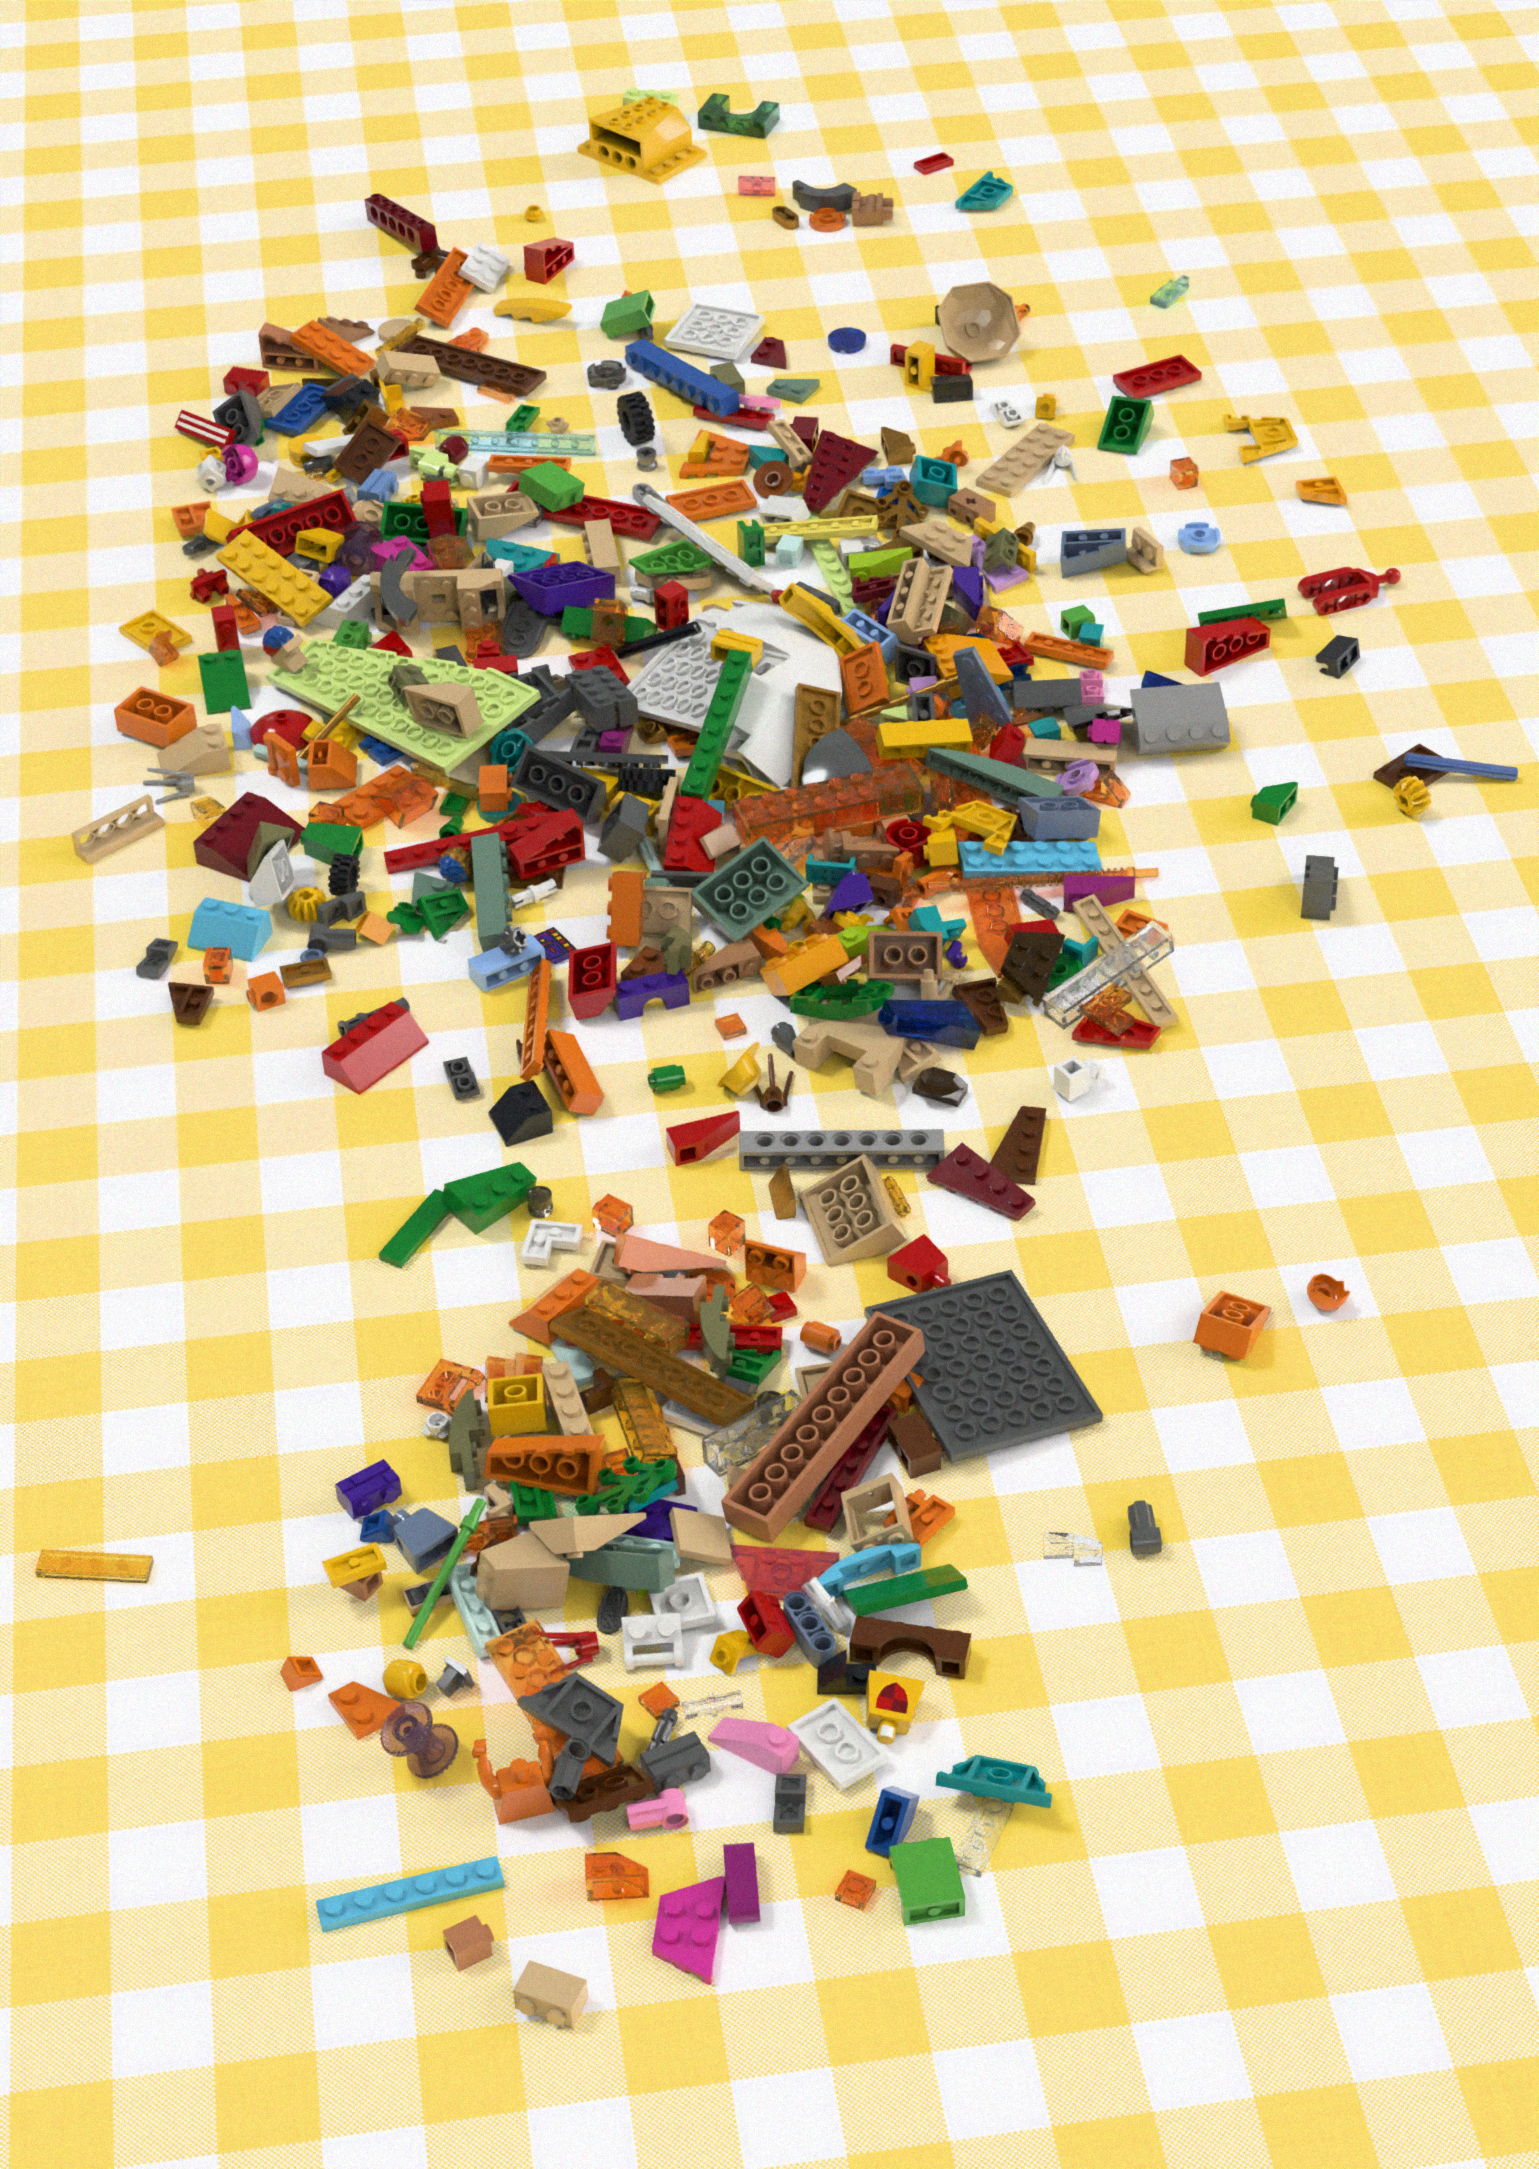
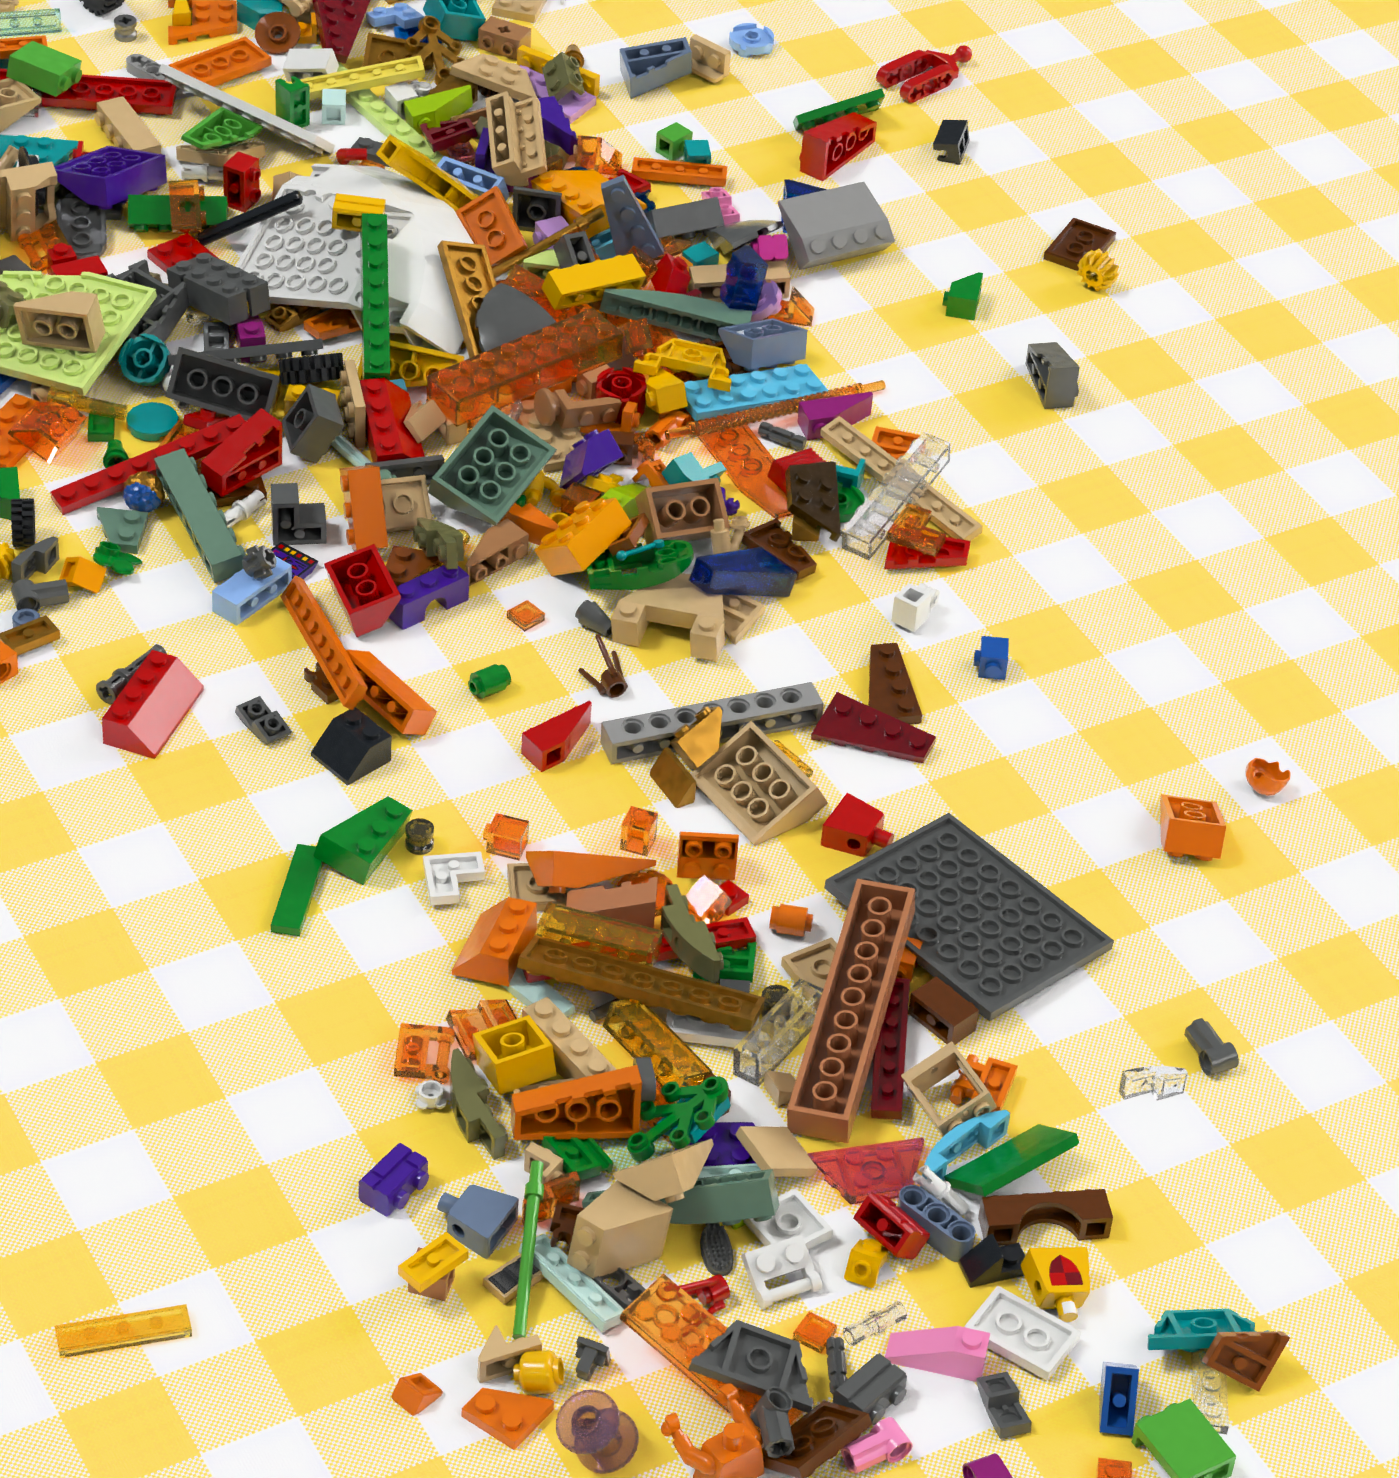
camera: 25 degrees left, 0 degrees up
(377, 1656) = (499, 1357): none -> tan slope
(378, 1528) = (421, 1218): blue slope -> none
(442, 910) = (151, 544): green wing -> none
(494, 788) = (145, 402): orange brick -> none
(569, 911) = (293, 521): none -> dark grey brick
(598, 1395) = (590, 1019): reddish brown panel -> none
(610, 1448) = (647, 1077): none -> dark grey beam
(744, 1074) = (573, 665): yellow piece -> none
(817, 1162) = (700, 739): none -> slope
(827, 872) = (561, 435): teal hinge -> none
(827, 987) = (621, 555): none -> teal hinge
(940, 1086) = (777, 639): dark brown slope -> none
(1020, 1811) = (1246, 1355): none -> dark orange wing
(1060, 756) = (744, 279): none -> clear blue slope
(1126, 1137) = (992, 657): none -> blue brick
(1461, 766) = (1127, 234): blue axle -> none

